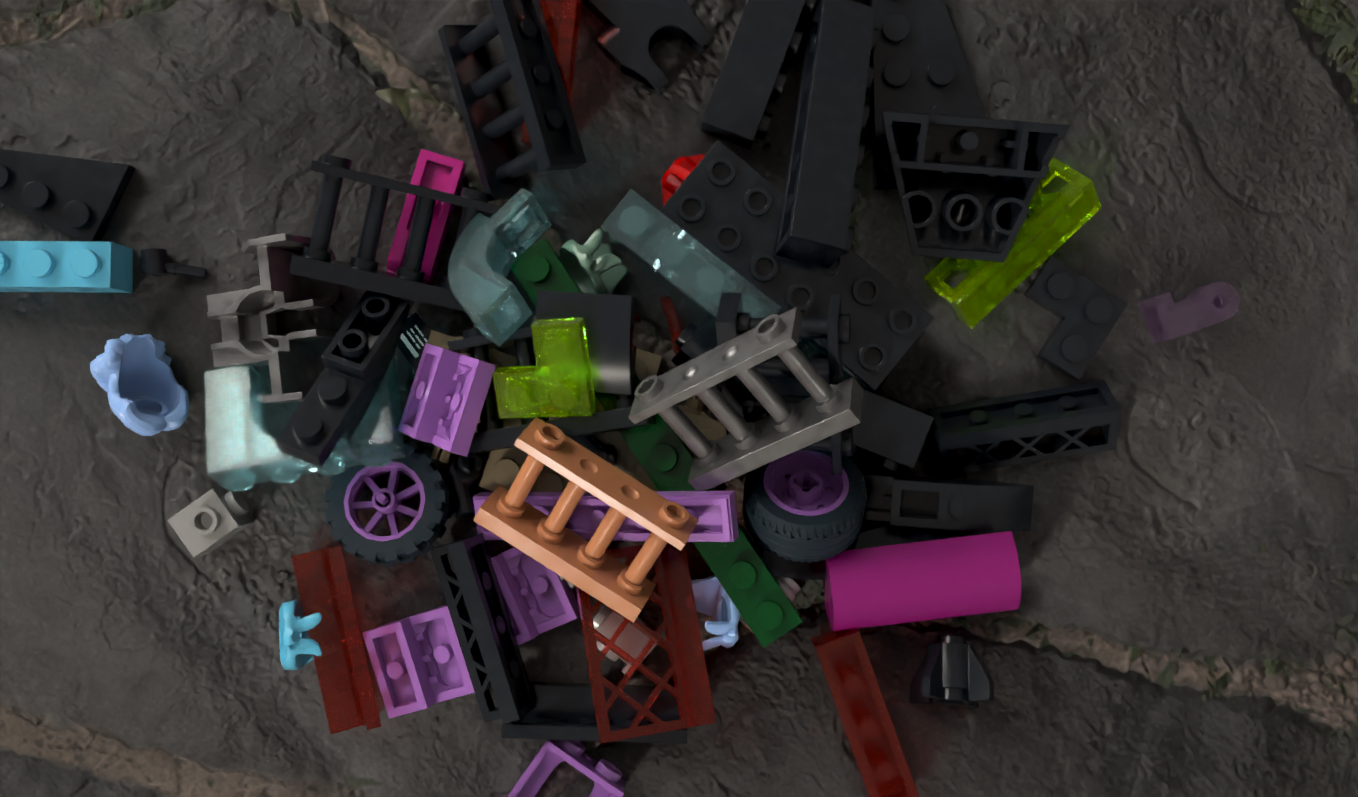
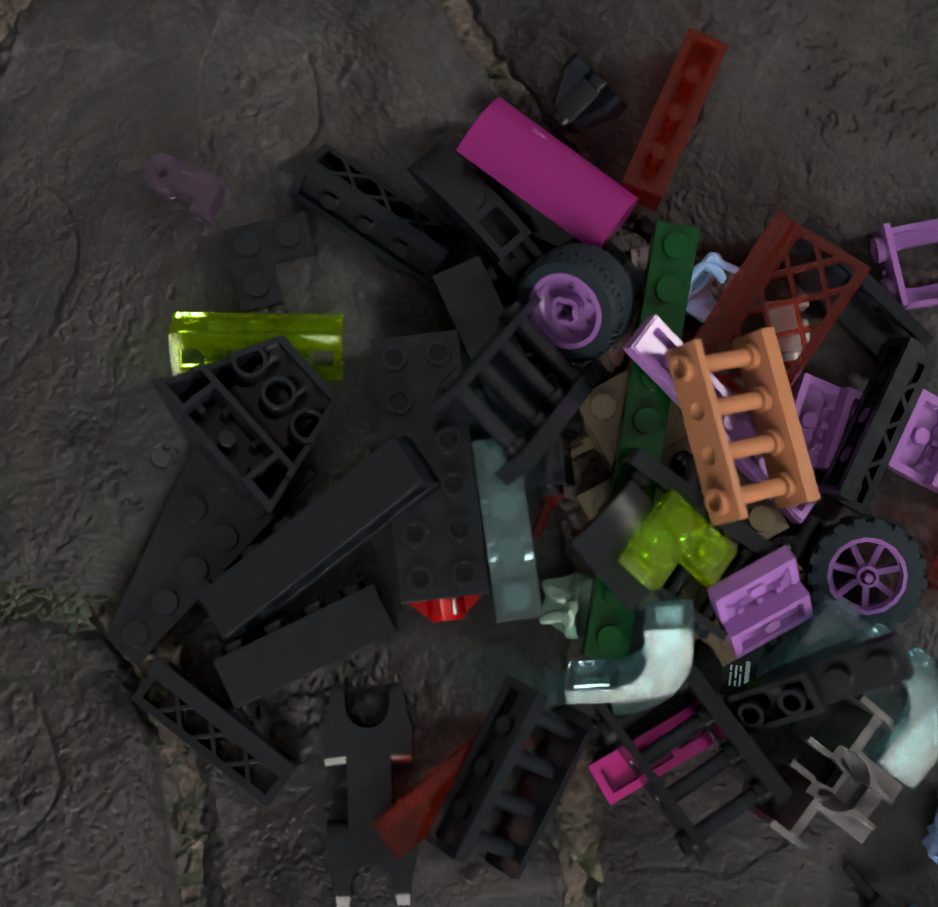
camera: 140 degrees left, 5 degrees down
(749, 443) = (575, 363): flat silver fence -> none

